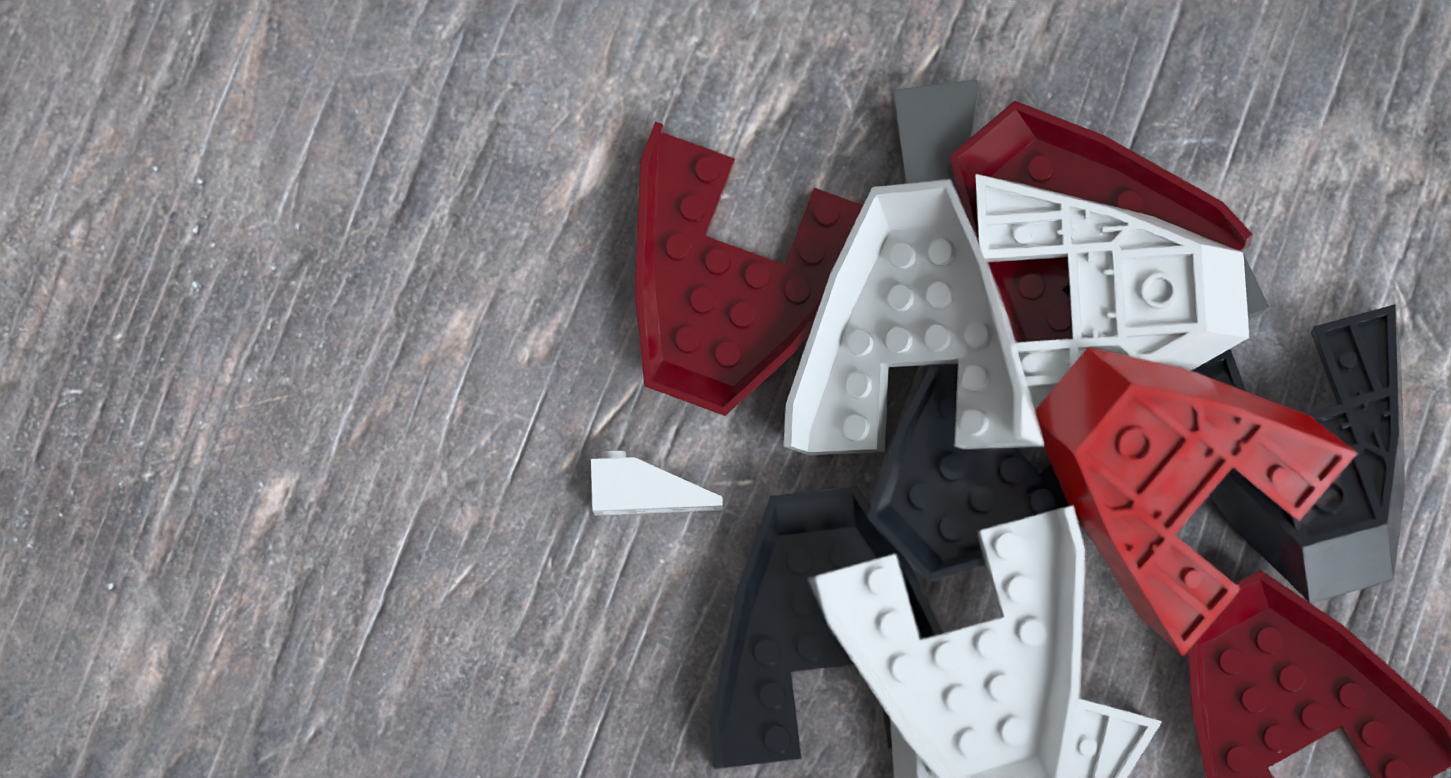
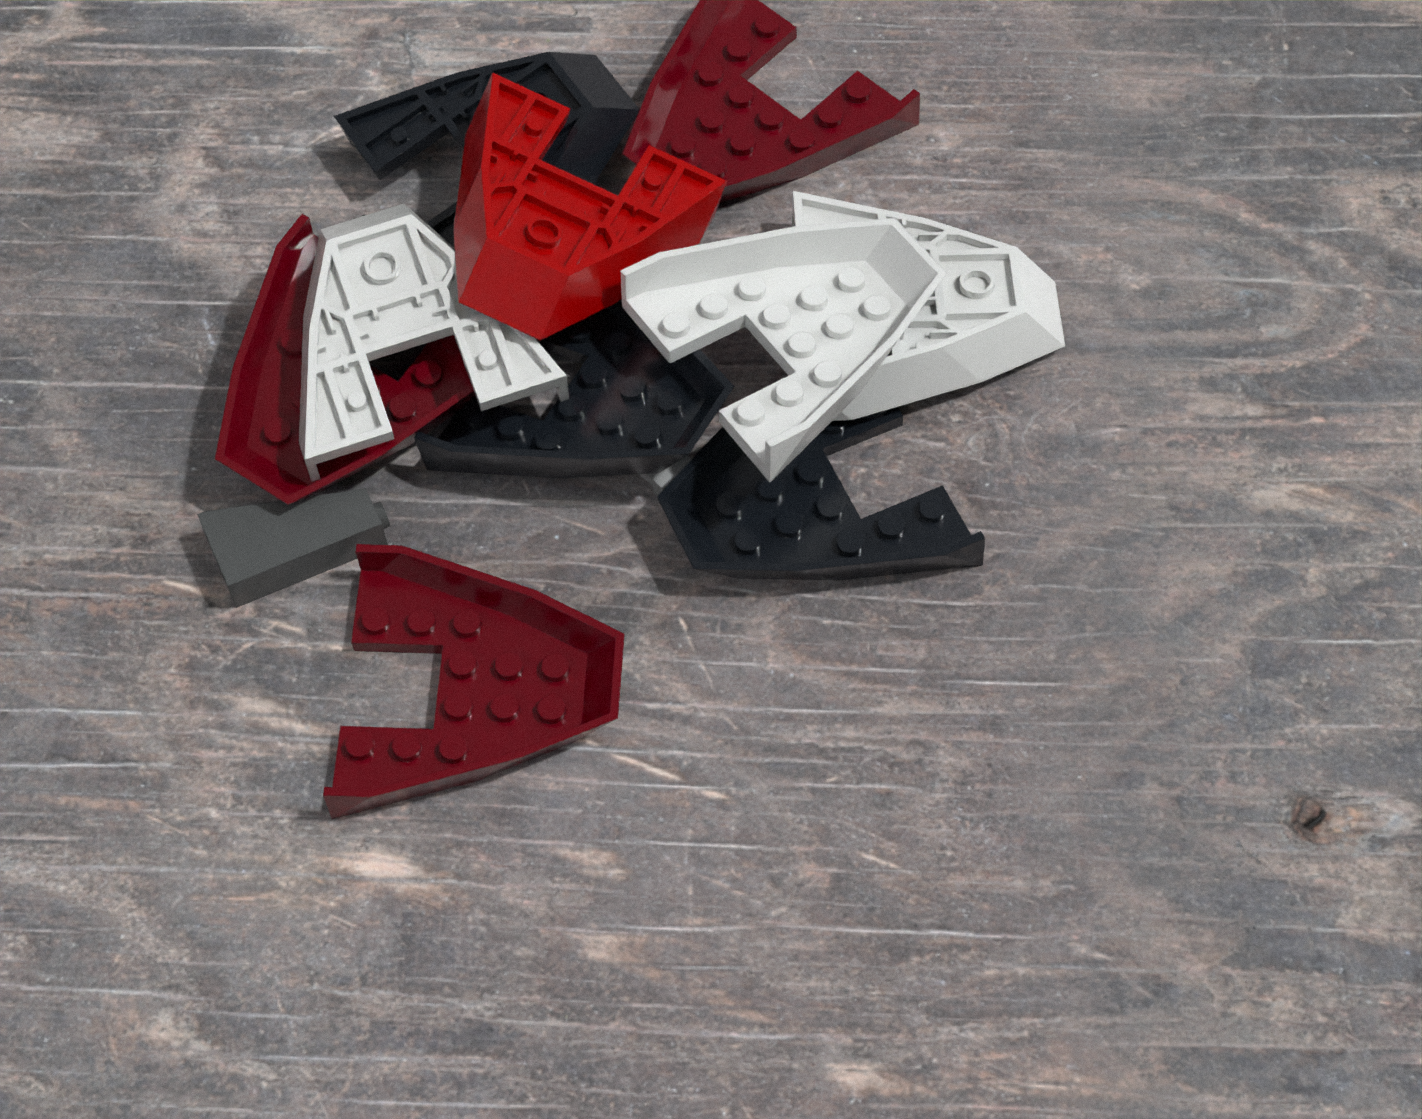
camera: 105 degrees left, 20 degrees down
(637, 487) = (725, 711): white slope -> none
(908, 295) = (438, 477): white piece -> none

